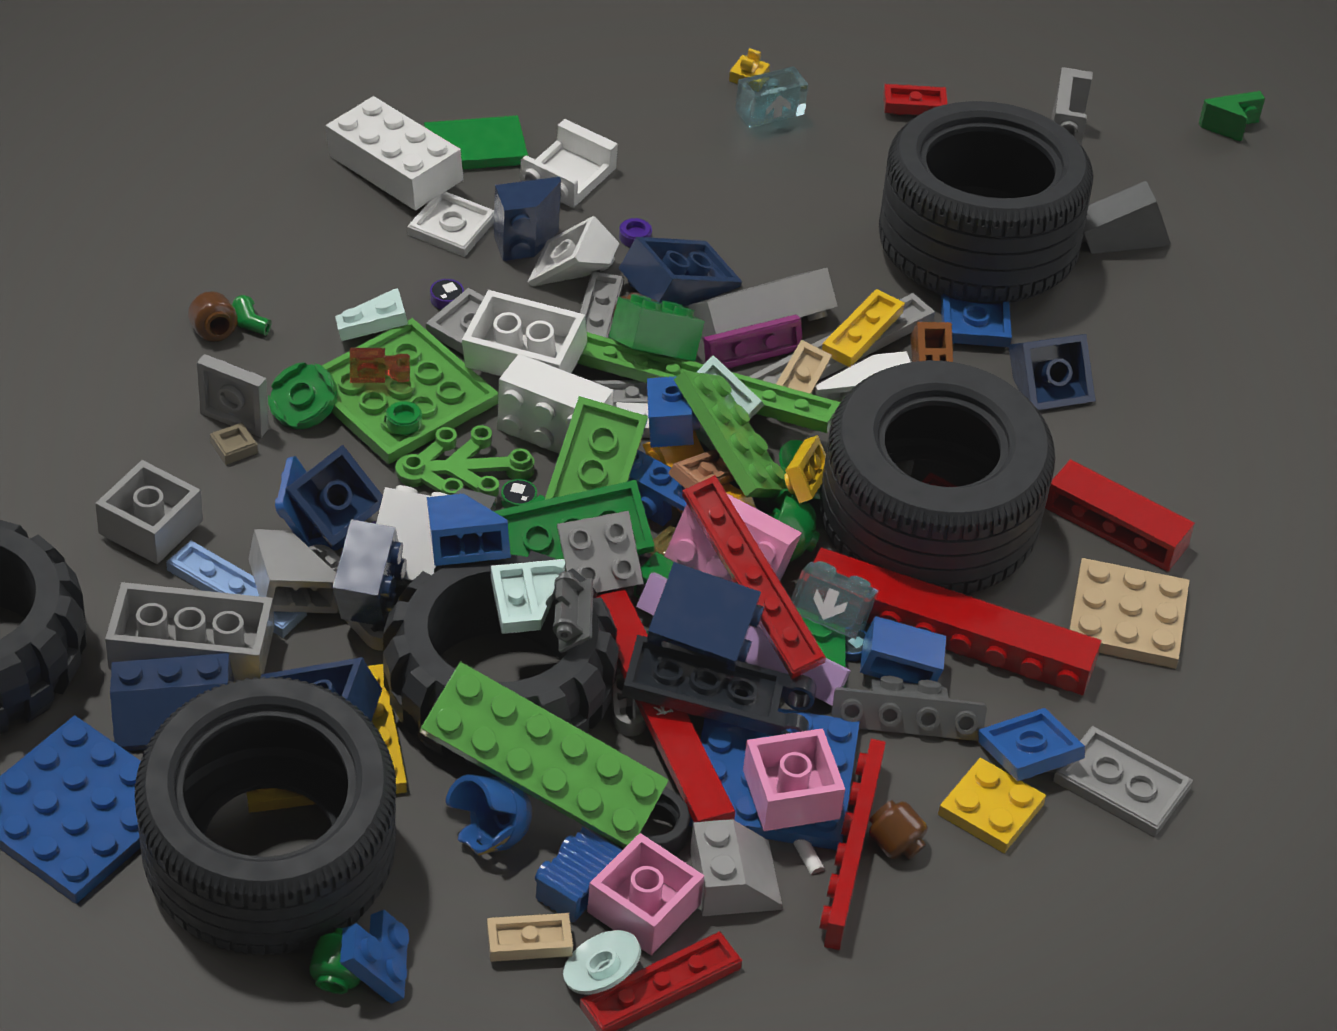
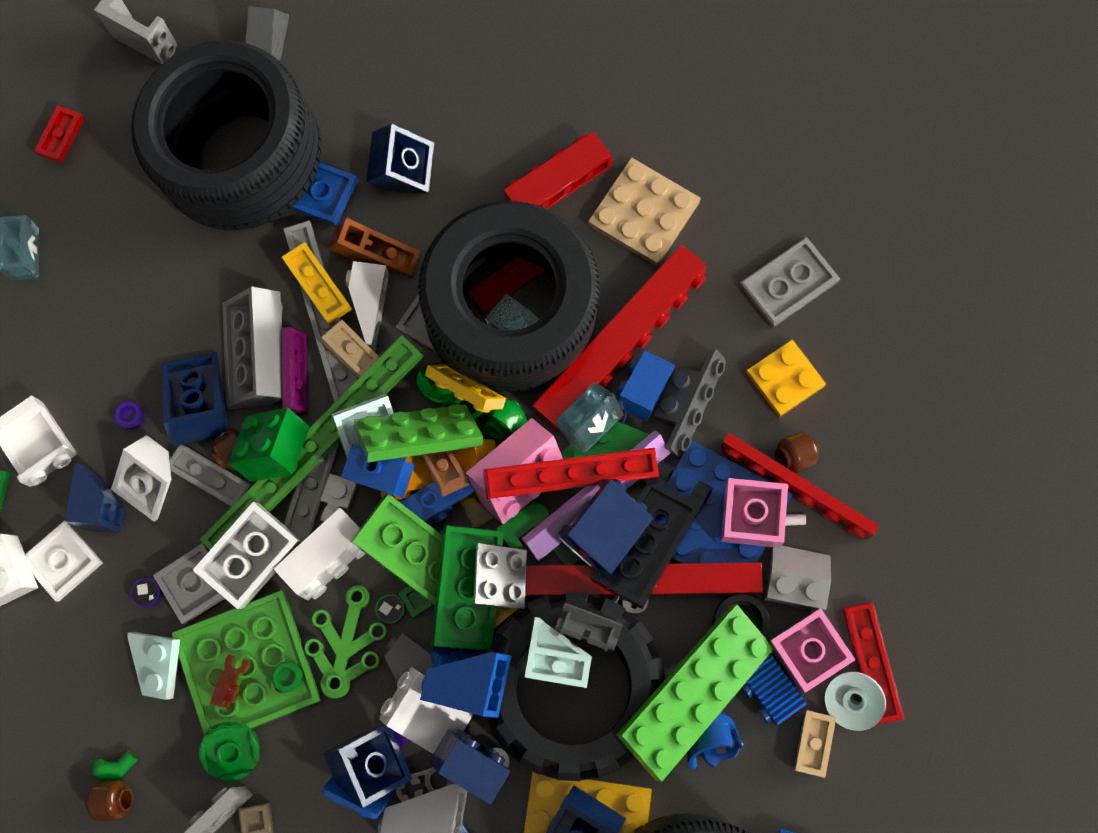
camera: 60 degrees left, 30 degrees up
(1031, 744) = (750, 331): blue plate -> none

